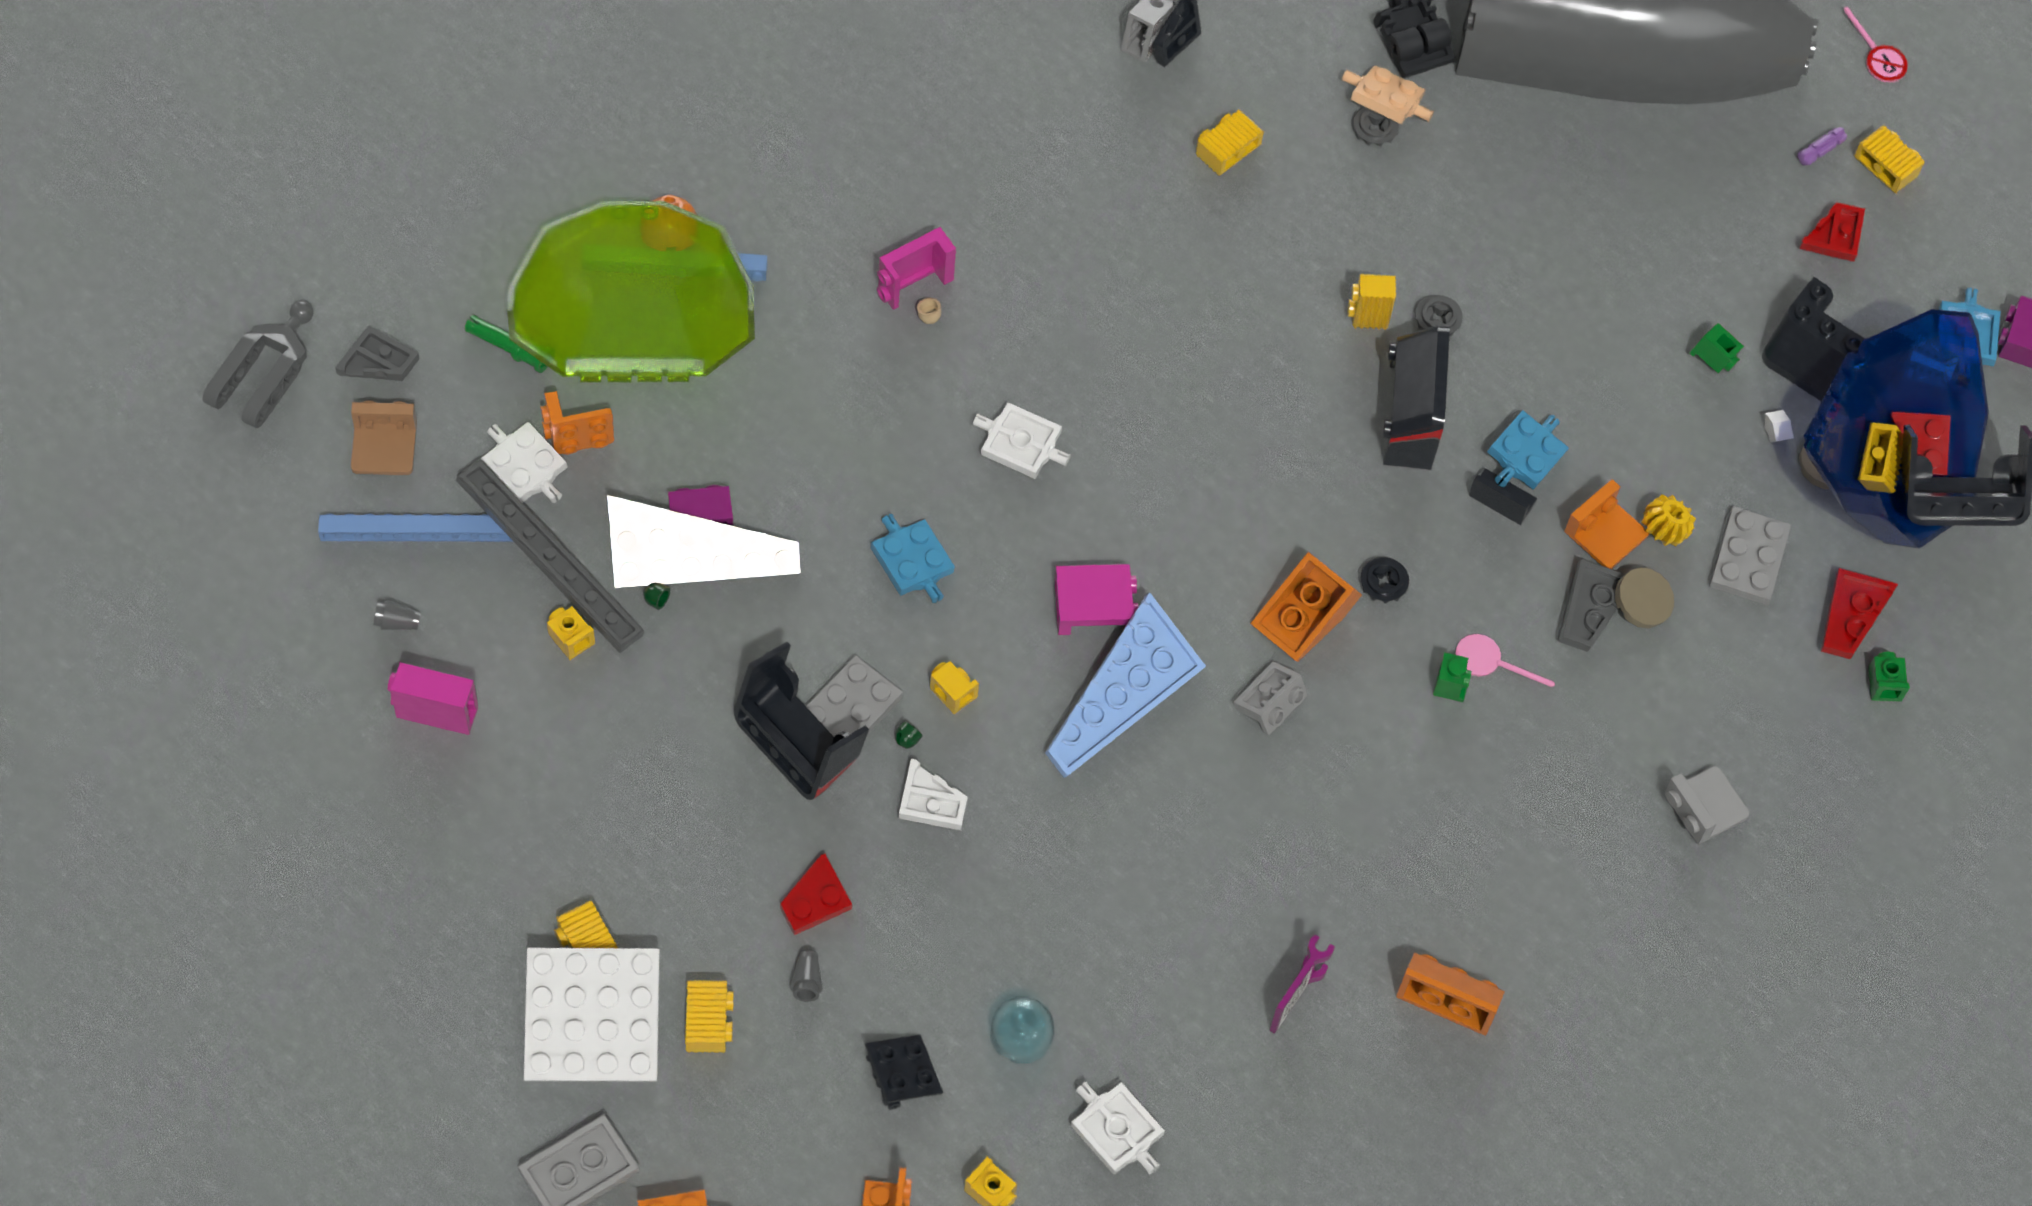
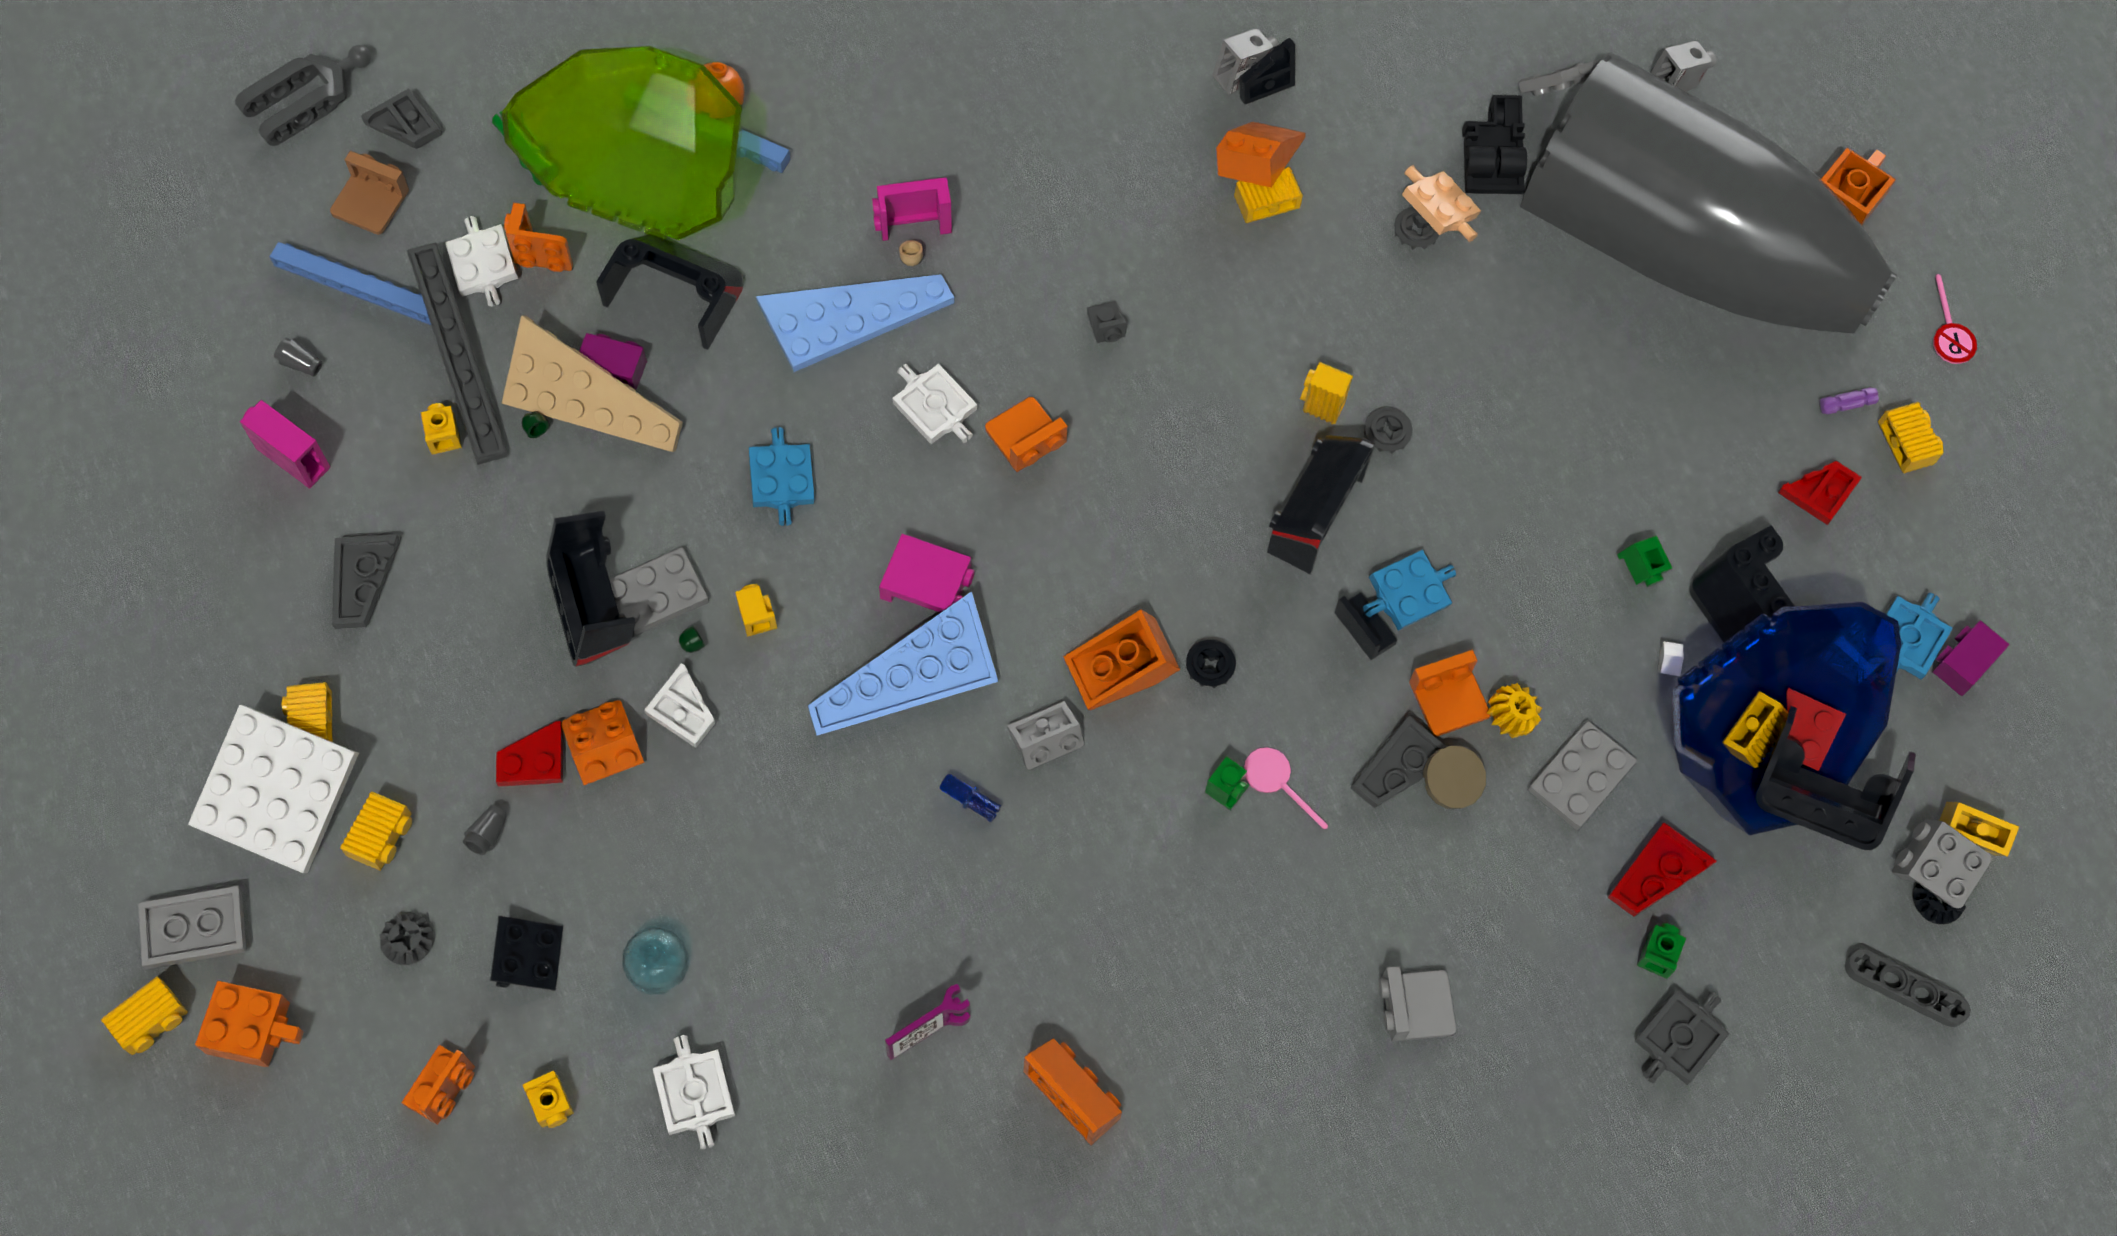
camera: 25 degrees right, 5 degrees up
(564, 795) = (359, 576): none -> dark grey wing
(717, 397) = (713, 280): none -> black windscreen
(784, 1115) = (420, 943): none -> dark grey gear
(874, 855) = (601, 742): none -> orange bracket
(887, 398) = (833, 319): none -> light blue wing
(1119, 436) = (1026, 433): none -> orange bracket
(1140, 310) = (1106, 322): none -> dark grey bracket
(1205, 106) = (1257, 152): none -> orange slope
(1231, 777) = (970, 797): none -> clear blue axle
(1938, 744) = (1682, 1037): none -> dark grey plate

